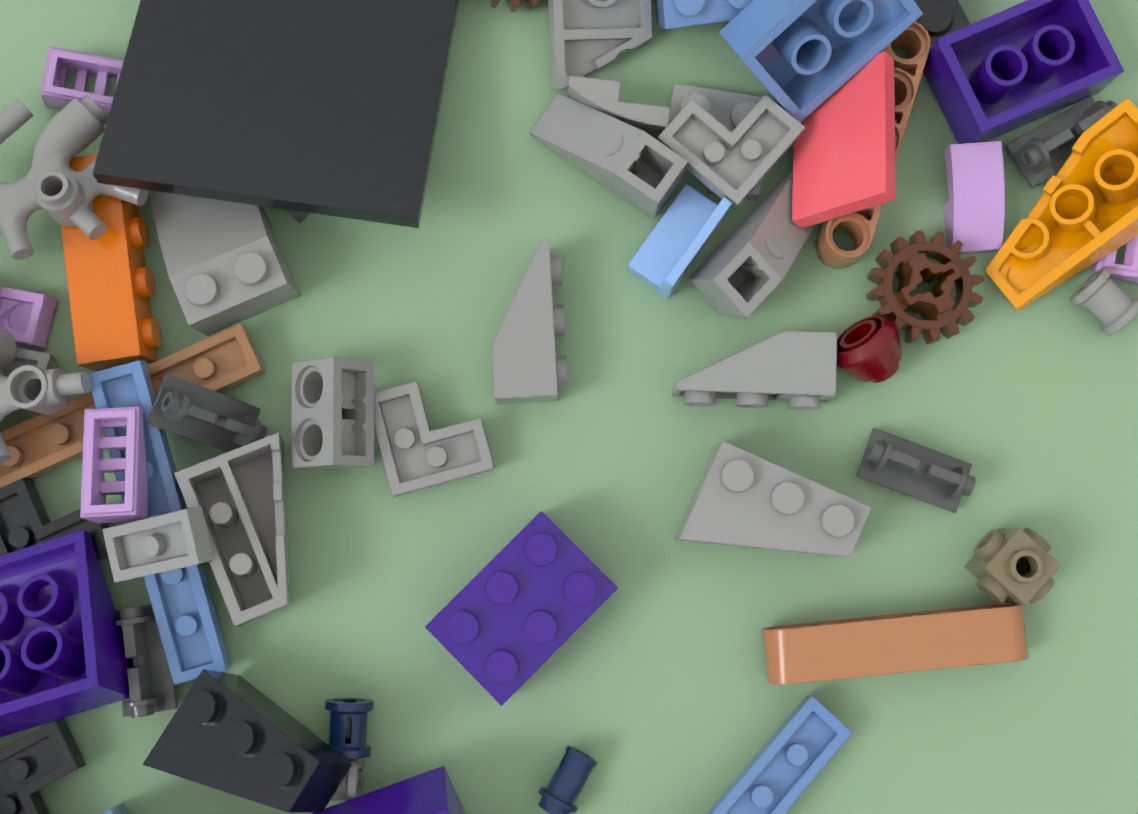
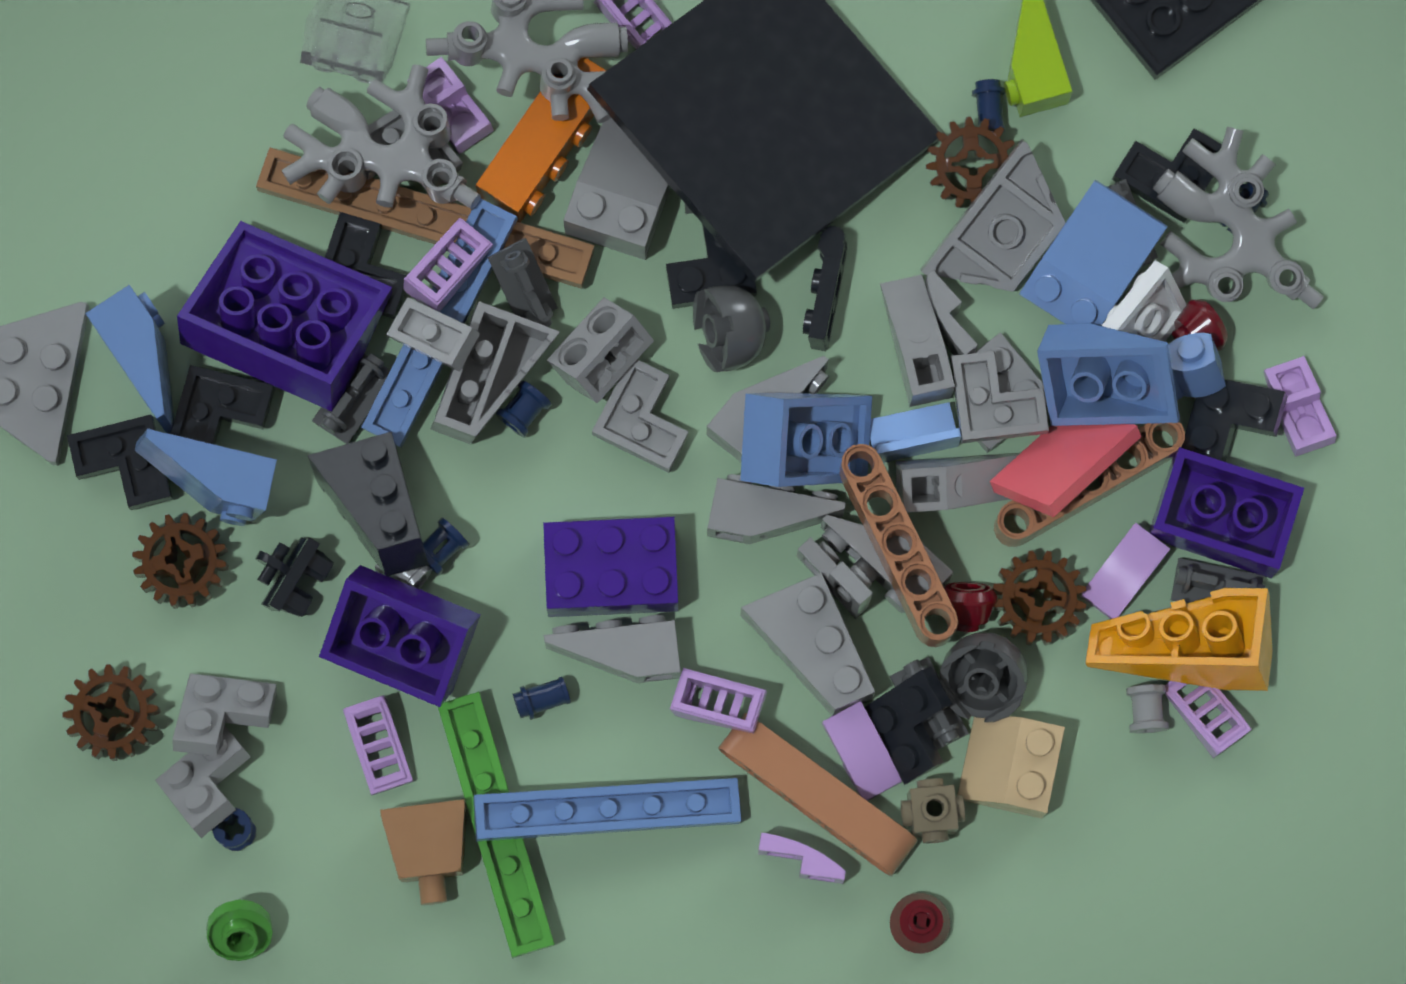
camera: 40 degrees right, 5 degrees down
(310, 530) = (523, 408): none -> dark blue bush
(374, 262) = (692, 276): none -> black plate
(433, 286) = (731, 325): none -> dark grey cylinder
(484, 176) = (826, 284): none -> black hinge
(594, 332) = (802, 437): none -> medium blue slope
(605, 438) = (758, 513): none -> light grey slope
(610, 669) = (633, 651): none -> light grey slope
(695, 661) = (685, 694): none -> lavender slope
(757, 429) = (846, 584): none -> light grey plate
(799, 350) = (898, 524): none -> nougat beam
(898, 568) = (862, 751): none -> lavender slope
(909, 507) = (900, 722): none -> black plate
(950, 402) = (984, 677): none -> dark grey cylinder
(950, 711) = (813, 863): none -> lavender slope
(1040, 458) = (1011, 764): none -> tan slope
(1086, 674) = (918, 937): none -> dark red cone

